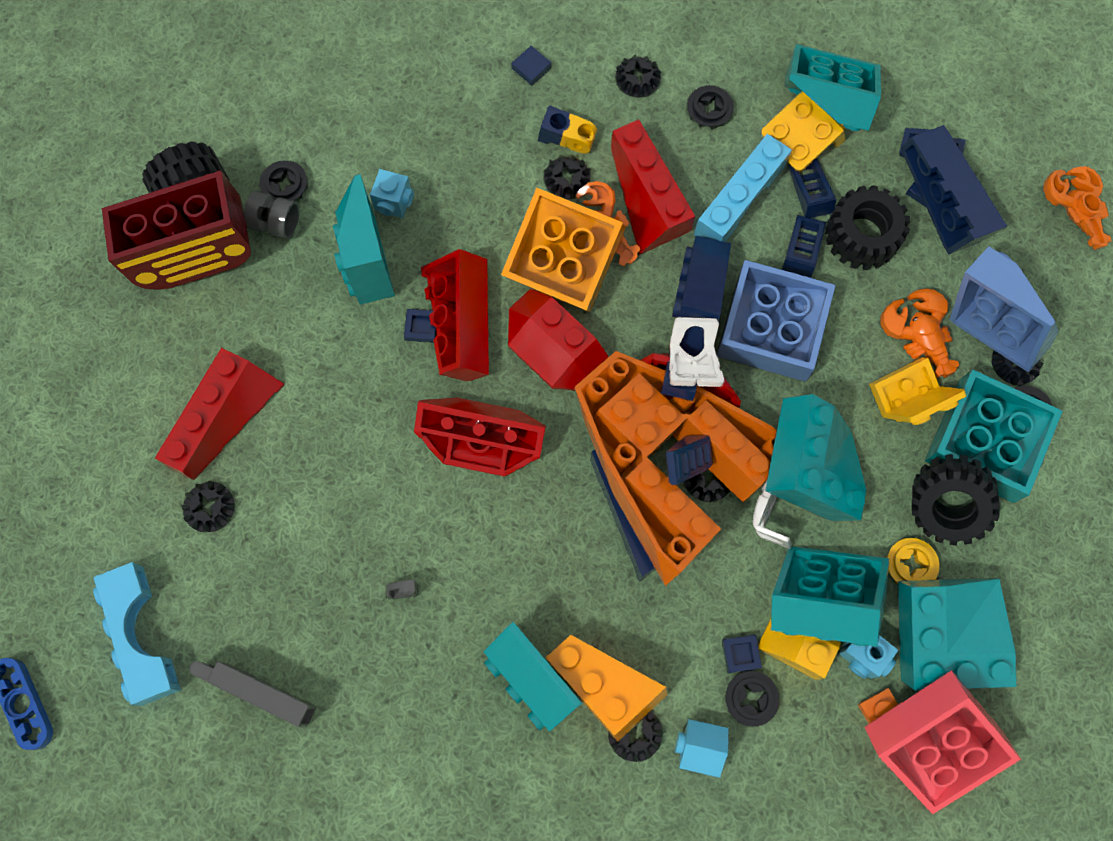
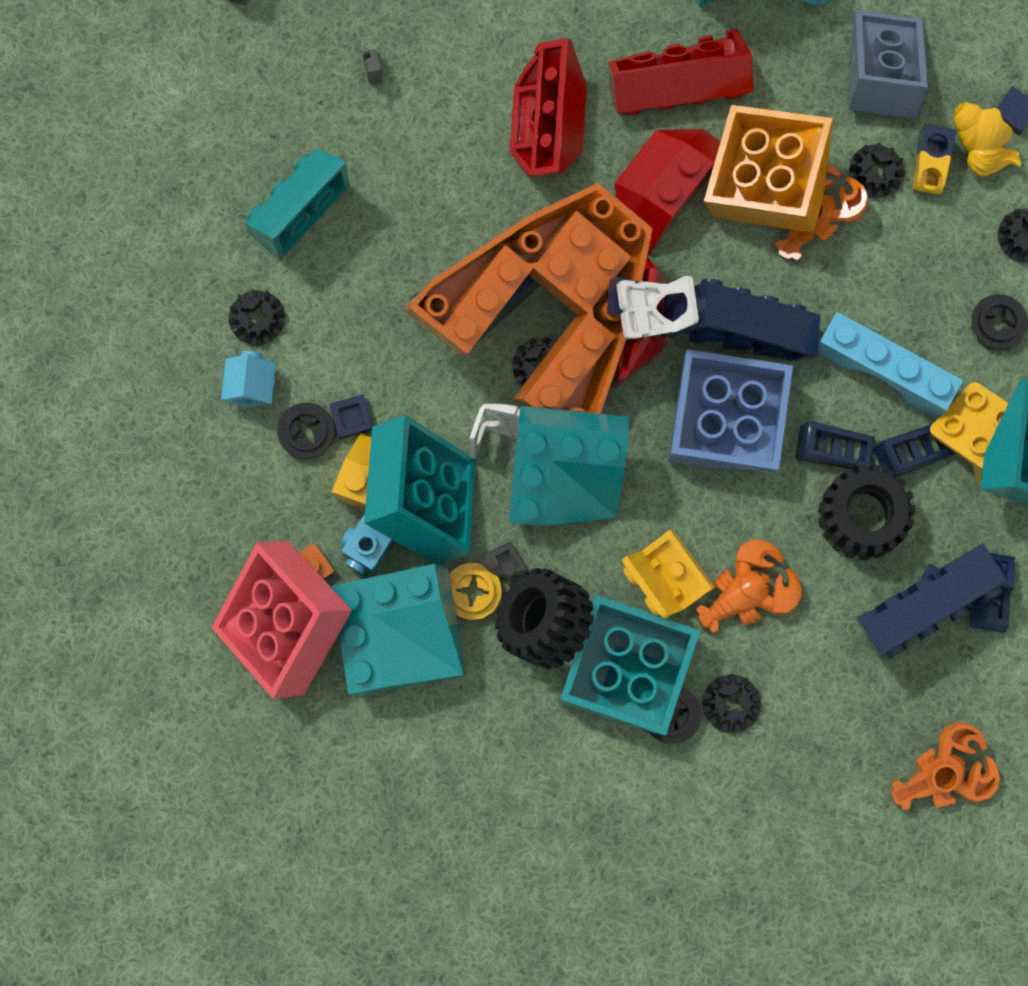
camera: 80 degrees right, 5 degrees up
(418, 326) = (665, 34): dark blue tile -> none
(478, 151) = (887, 65): none -> sand blue slope
(556, 88) = (983, 136): none -> yellow hair
(605, 685) = (295, 272): light orange wedge -> none
(649, 191) = (863, 266): red wedge -> none
(689, 458) = (542, 316): dark blue slope -> none
(887, 532) = (504, 562): none -> dark grey tile
(1004, 310) = (787, 646): medium blue slope -> none

